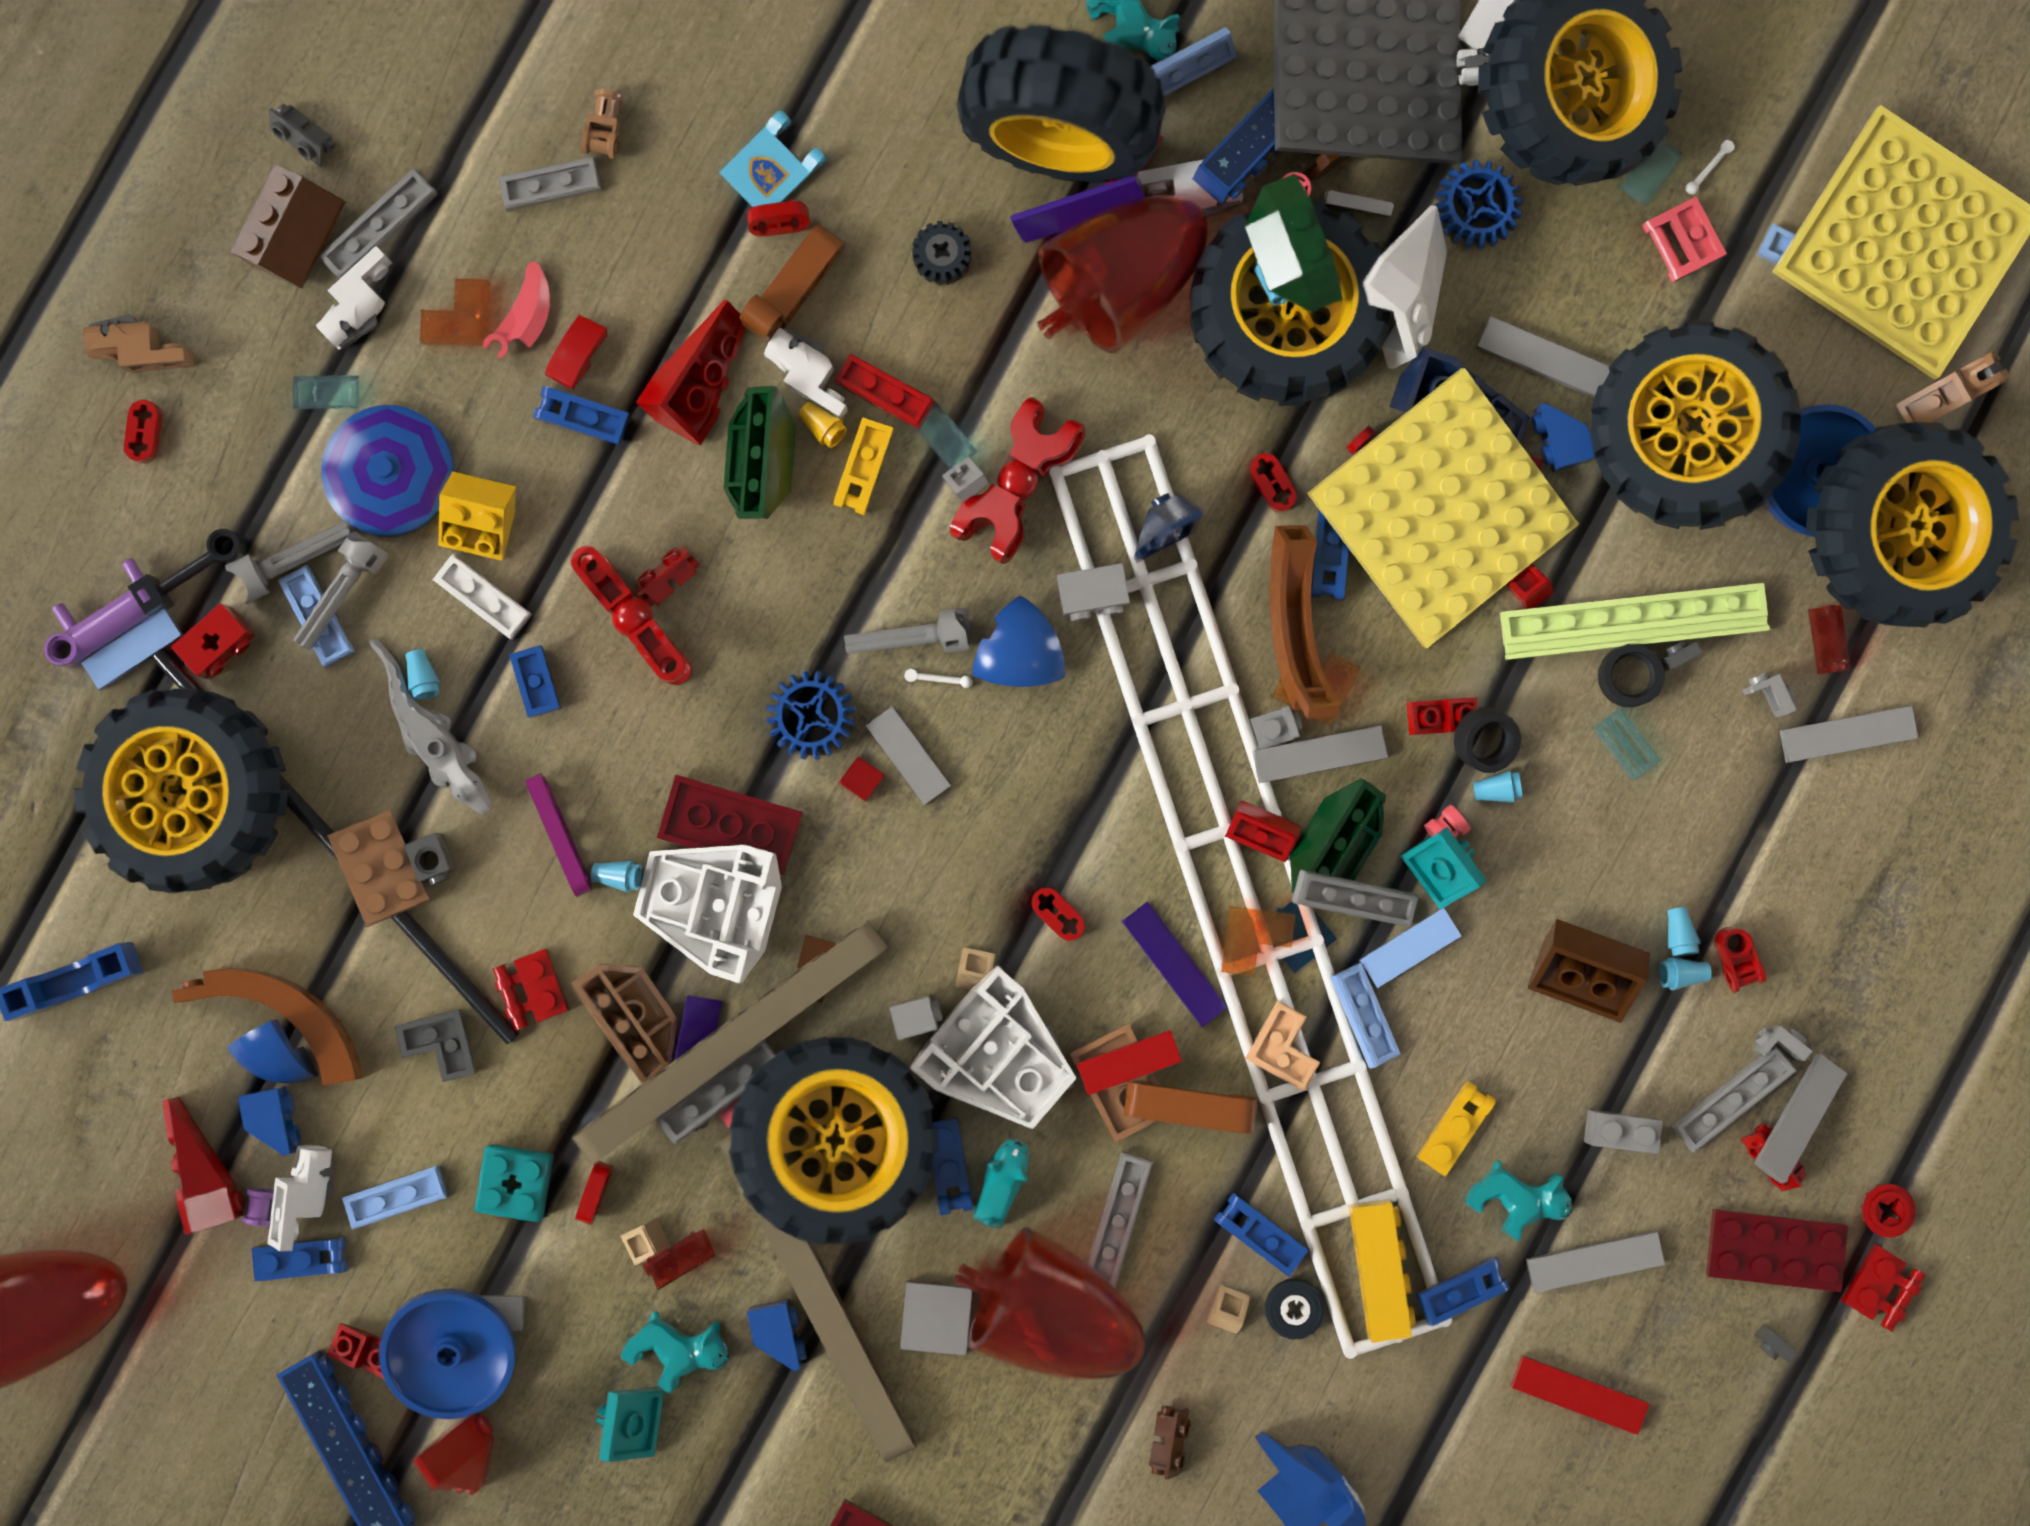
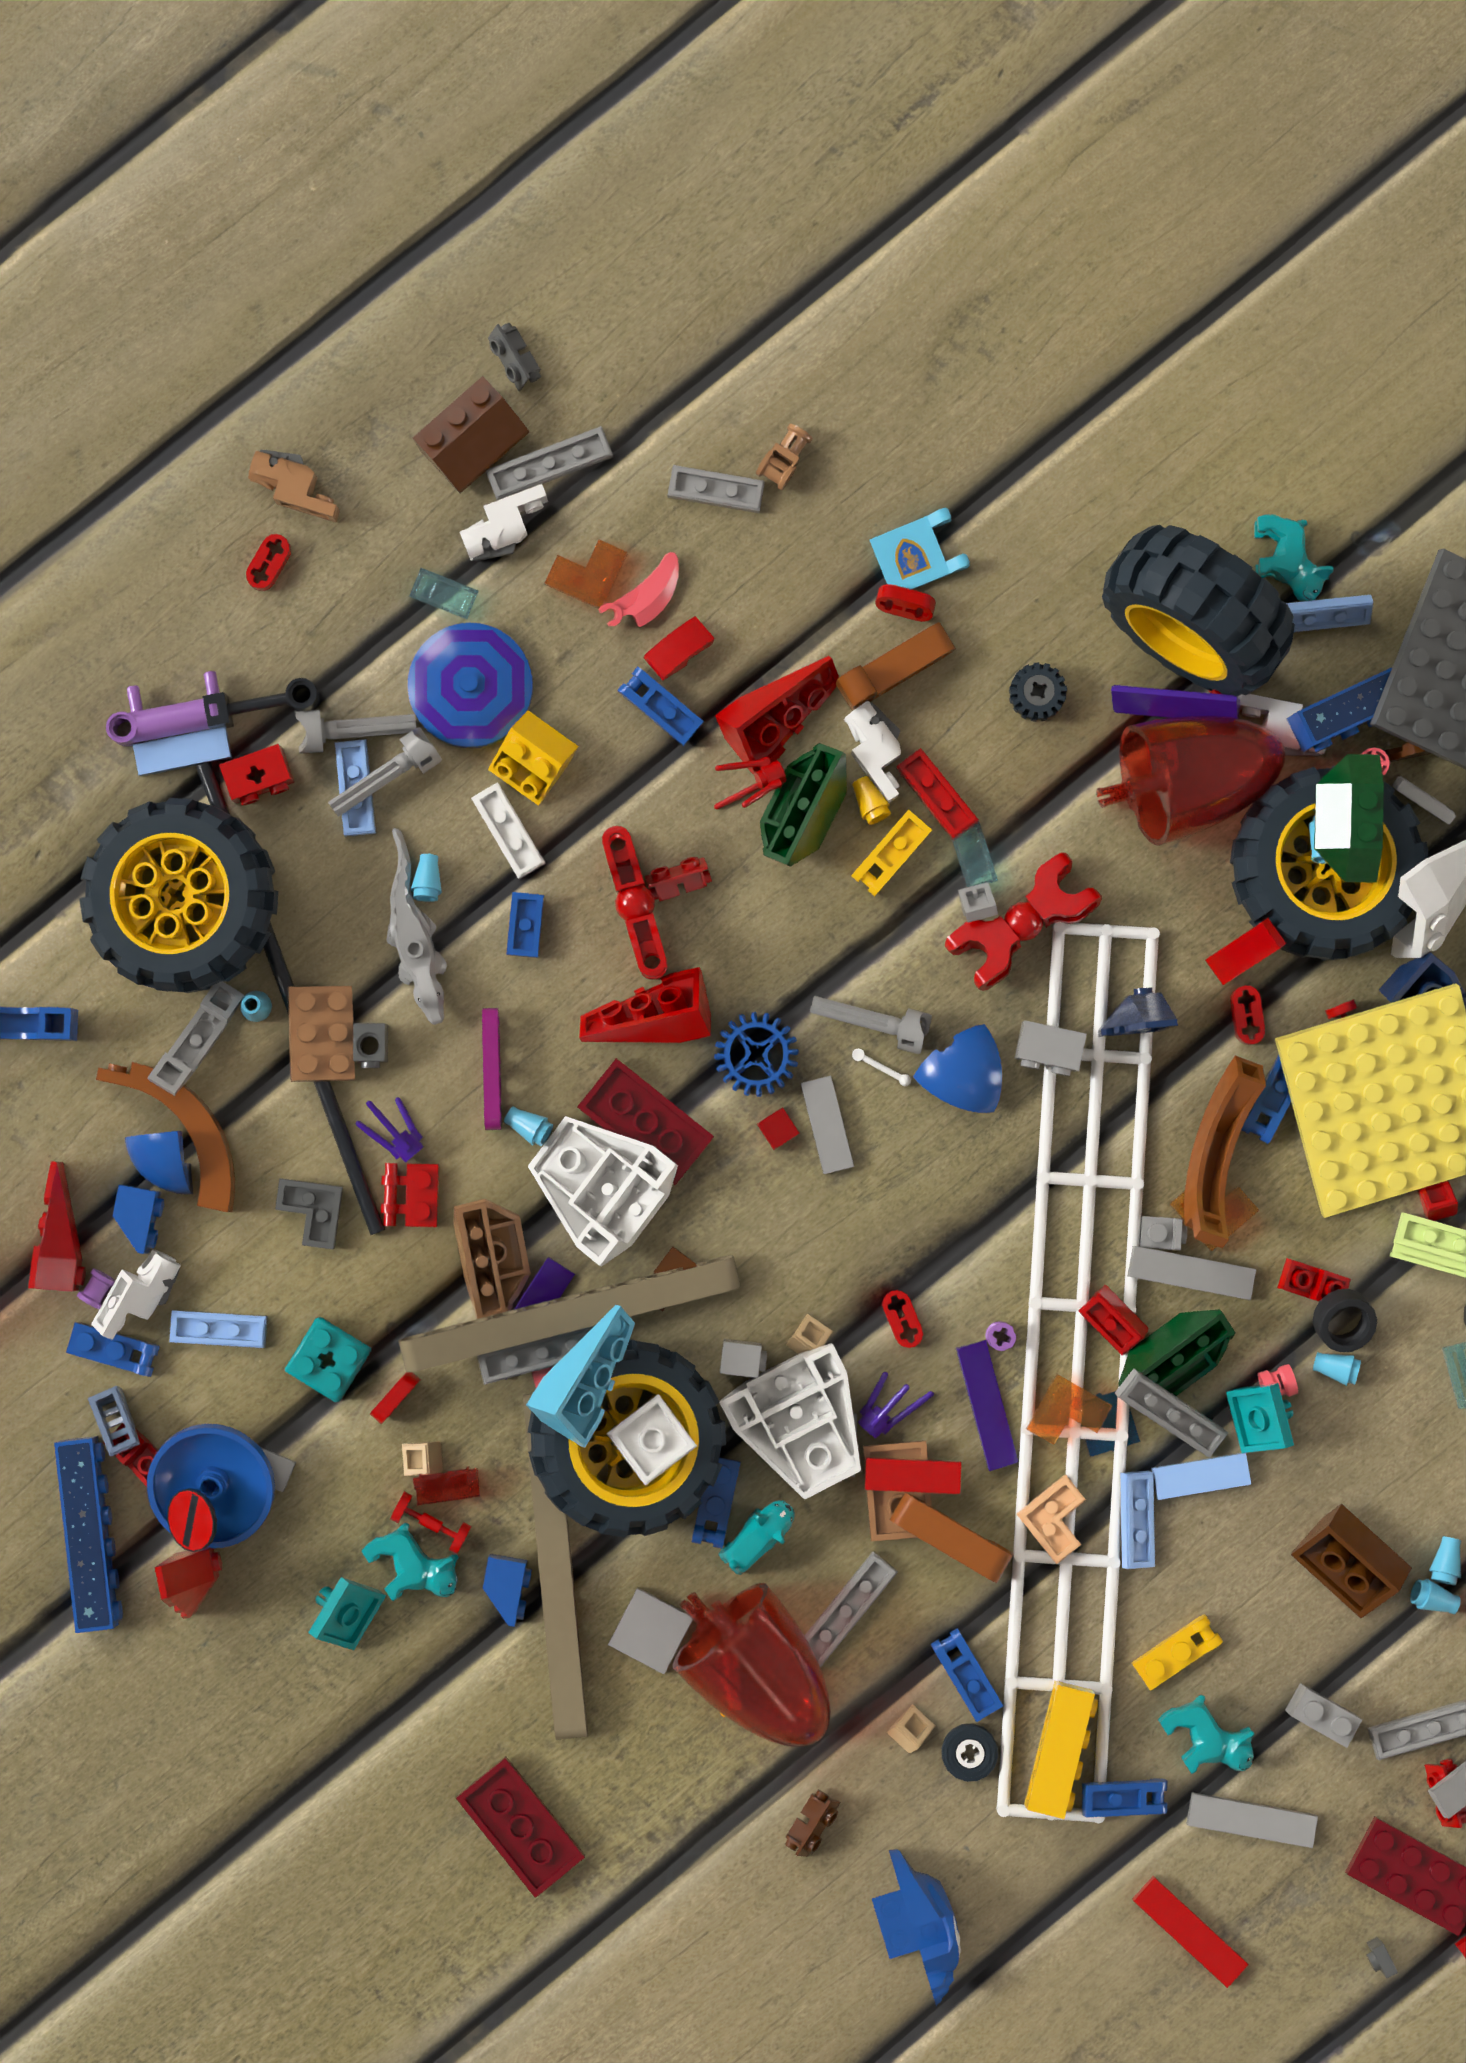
camera: 15 degrees right, 0 degrees up
(259, 923) = (197, 1038): none -> light grey slope
(305, 1321) = (104, 1398): none -> sand blue slope
(310, 867) = (263, 1006): none -> medium azure cone
(440, 1395) = (192, 1520): none -> red piece
(504, 941) = (405, 1144): none -> dark purple plant
(678, 1301) = (430, 1522): none -> red wheel
(706, 712) = (663, 1014): none -> red wedge
(712, 441) = (768, 777): none -> red plant
(758, 1111) = (575, 1387): none -> medium azure wedge
(855, 1132) = (651, 1439): none -> white plate
(1071, 1022) = (876, 1419): none -> dark purple plant
(1152, 899) = (997, 1326): none -> medium lavender bush
(1244, 420) = (1245, 951): none -> red tile

